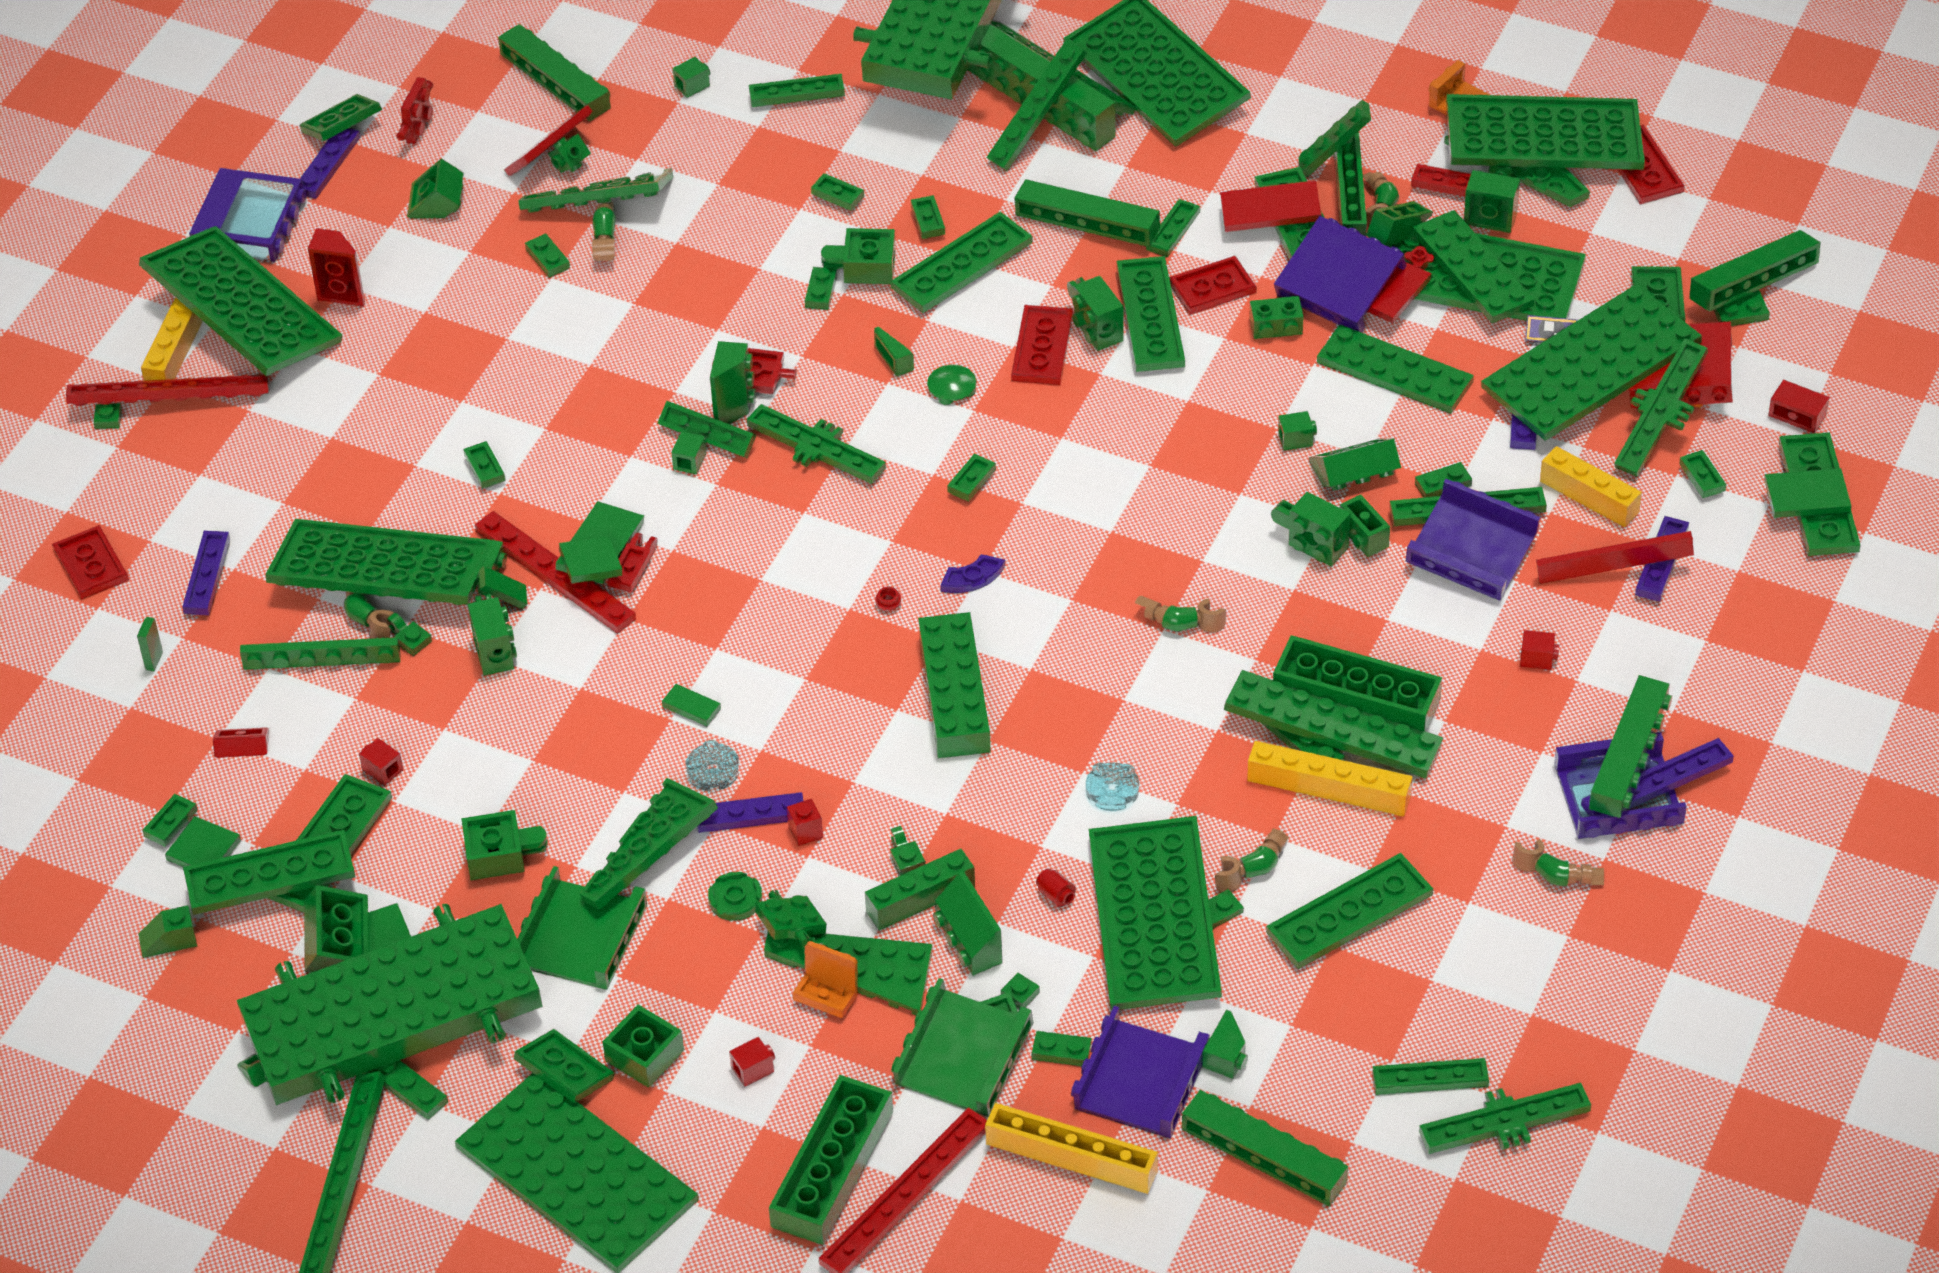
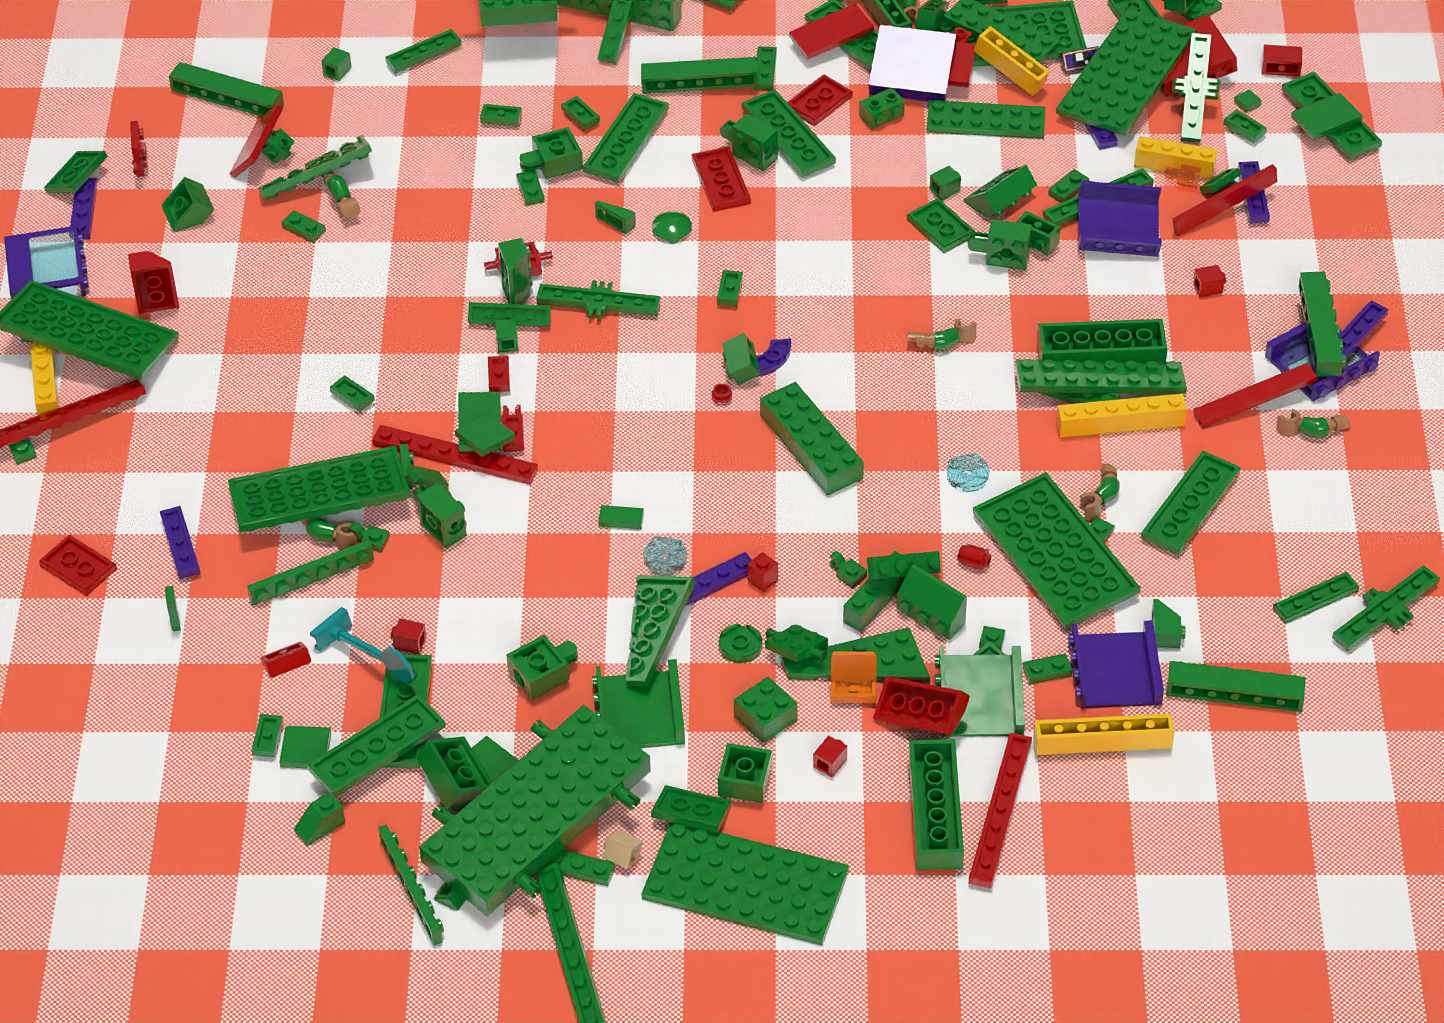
camera: 25 degrees left, 0 degrees up
(218, 1047) = (414, 891): none -> green plate
(305, 726) = (335, 629): none -> teal piece
(461, 1084) = (622, 849): none -> tan brick
(655, 494) = (498, 374): none -> red plate
(712, 981) = (765, 709): none -> green brick
(880, 1040) = (920, 705): none -> red slope
(929, 565) = (740, 359): none -> green brick
(947, 865) = (899, 564): none -> green plate
(1261, 479) = (940, 225): none -> green tile
(1458, 306) = (1011, 61): none -> yellow brick
(1505, 807) = (1255, 395): none -> red tile
(1590, 513) = (1187, 175): none -> clear orange plate
(1629, 531) = (1220, 180): none -> green tile
(1727, 443) = (1247, 100): none -> green tile

